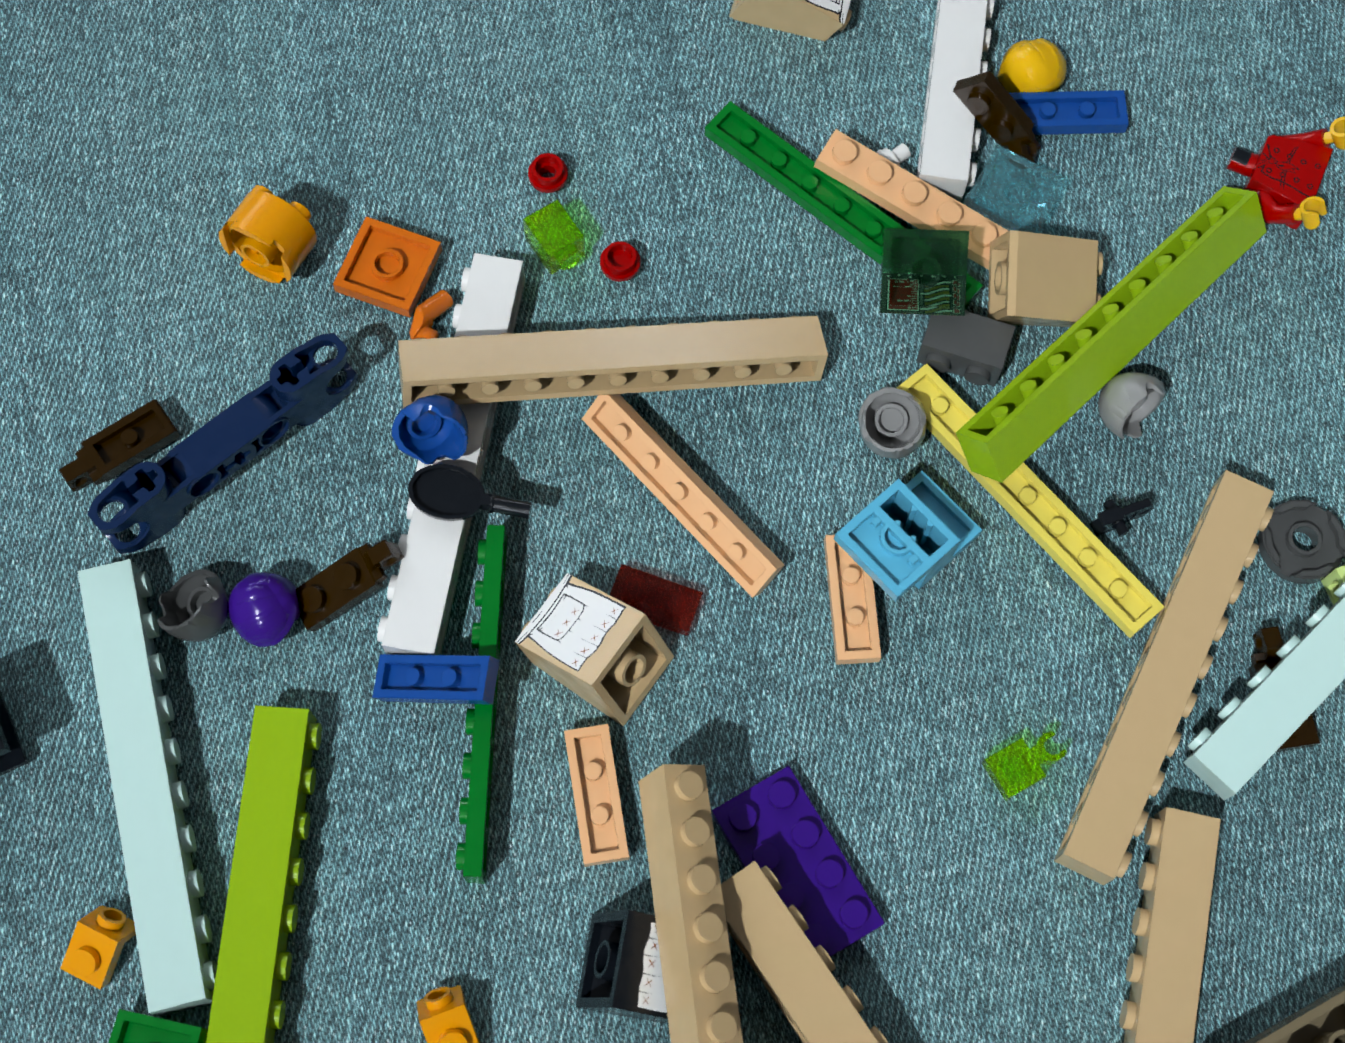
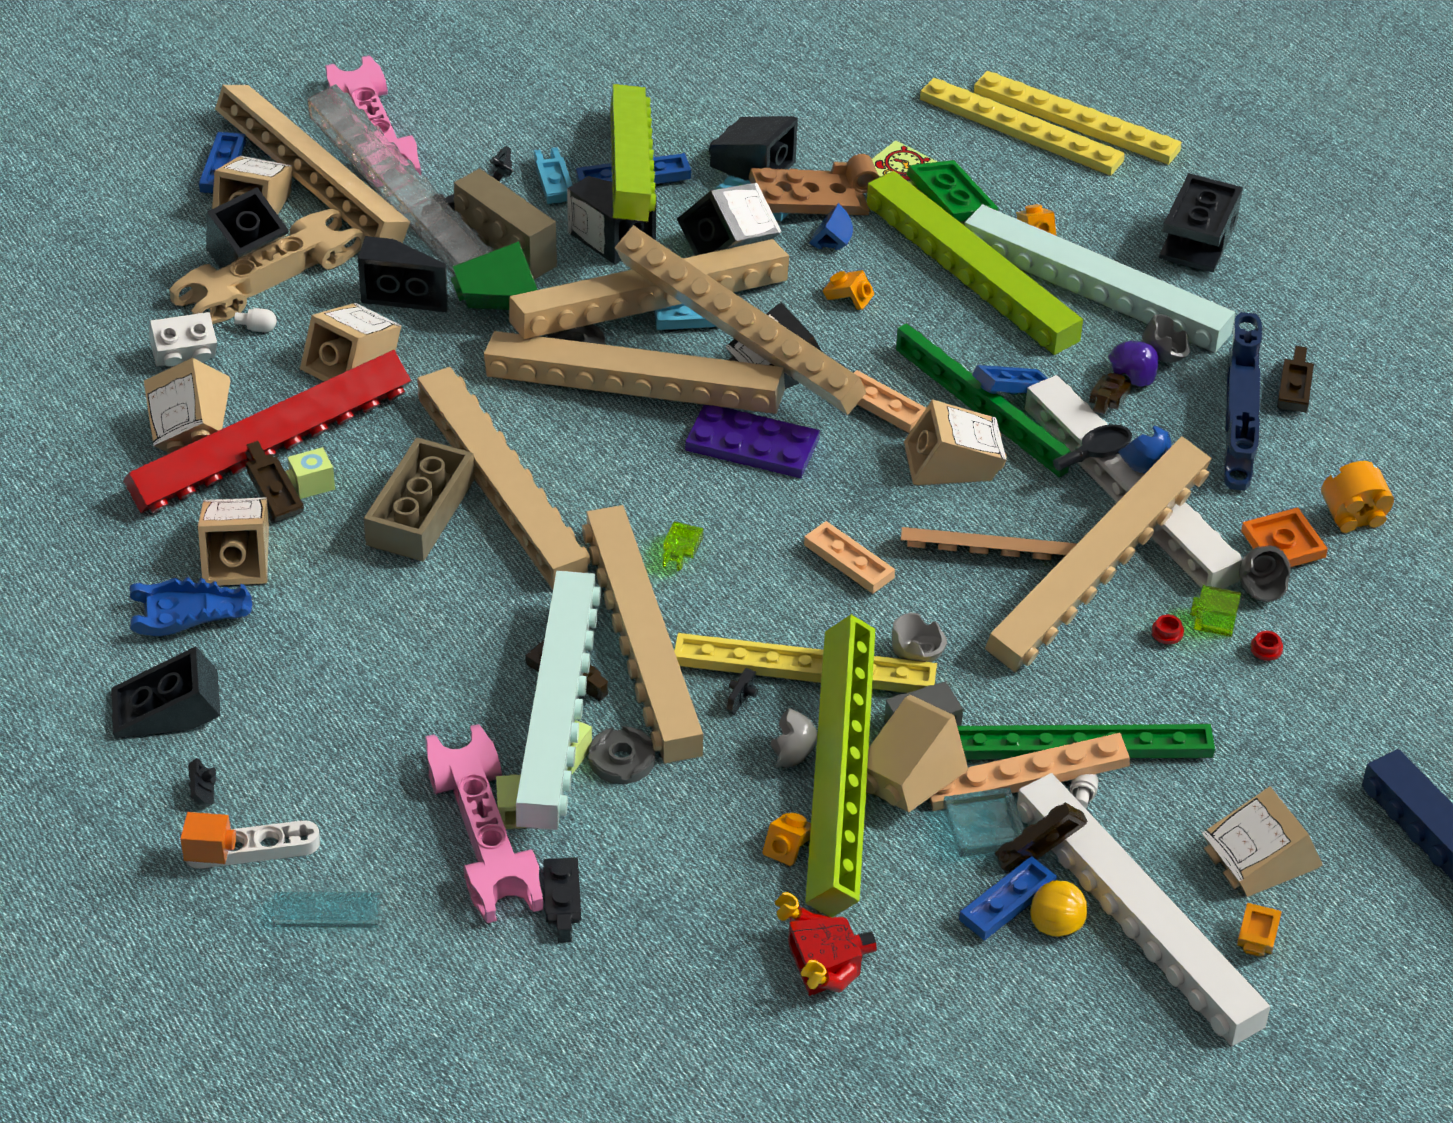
camera: 140 degrees right, 25 degrees down
(426, 314) = (1231, 530): orange arm -> none
(467, 230) = (1265, 573): none -> dark grey hair
(661, 600) = (951, 496): clear red plate -> none
(907, 535) = (849, 580): medium azure bracket -> none
(923, 271) = (989, 710): clear green slope -> none
(1213, 318) = (786, 837): none -> light orange bracket

